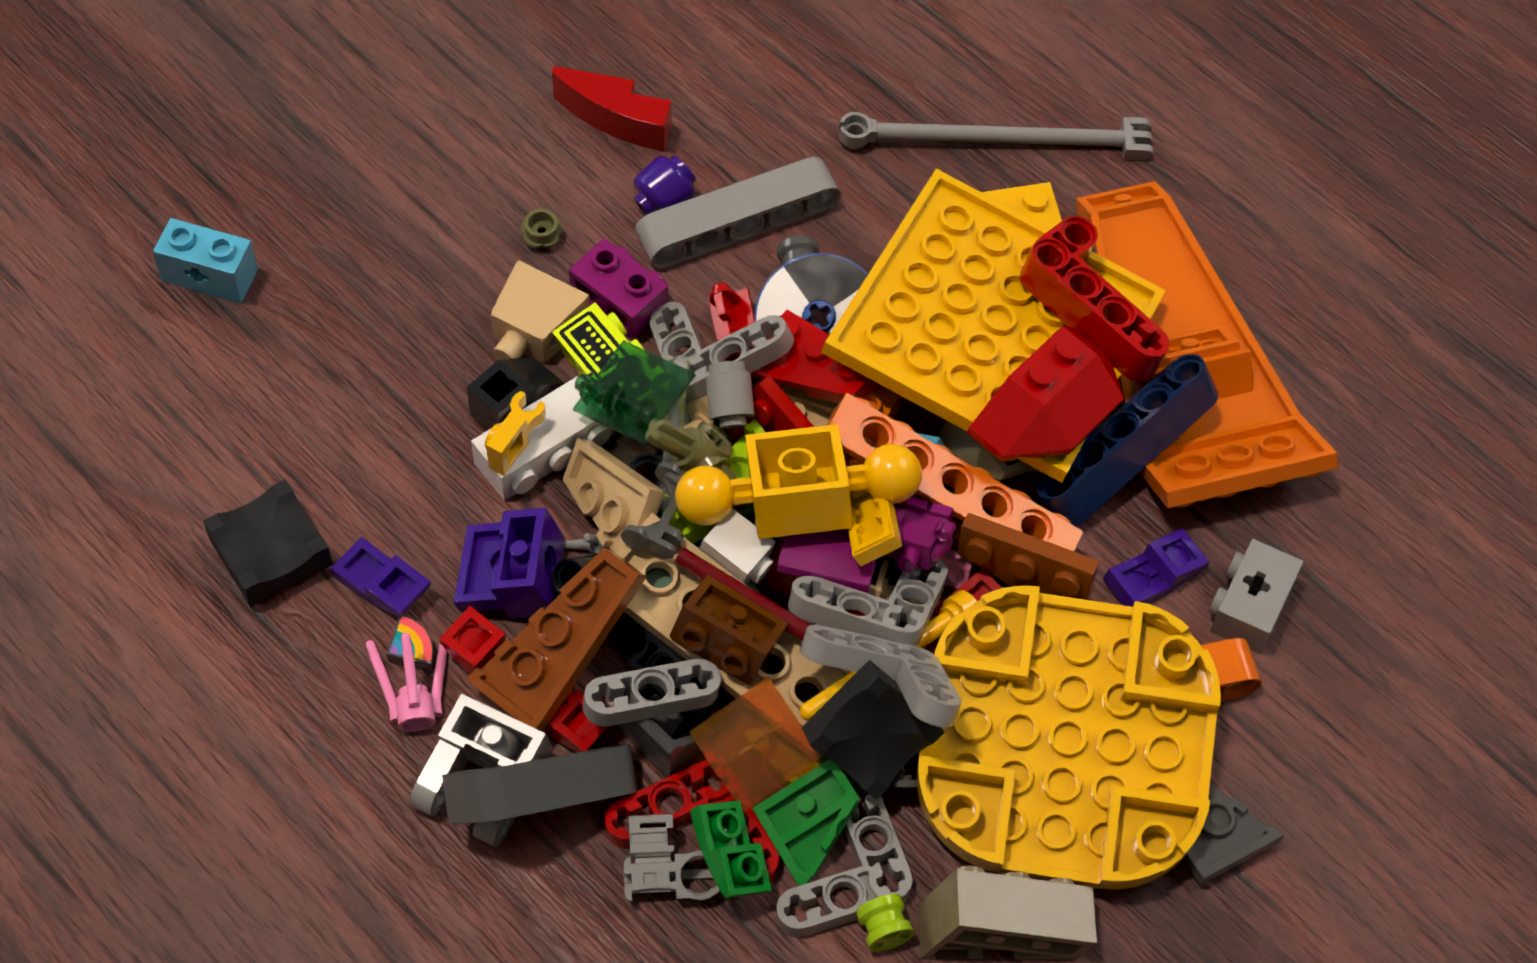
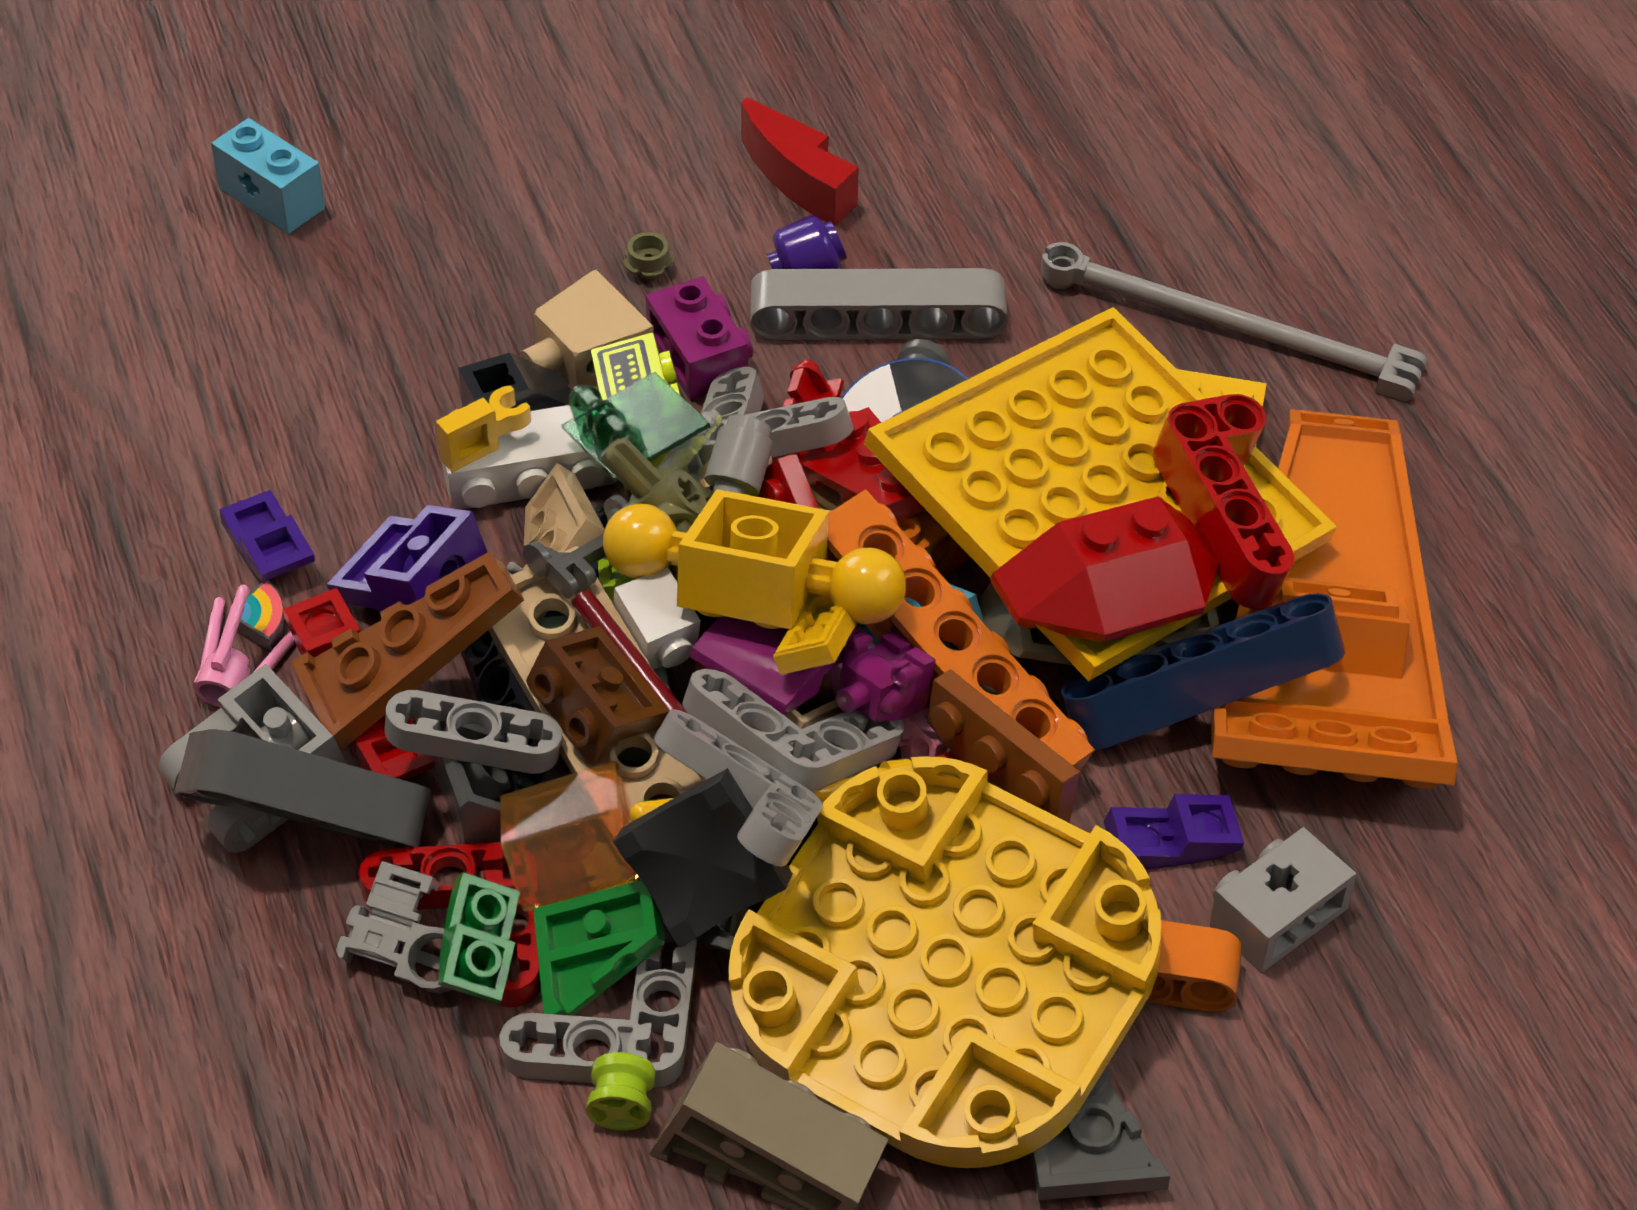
camera: 25 degrees right, 10 degrees down
(268, 543) = (165, 462): black brick -> none

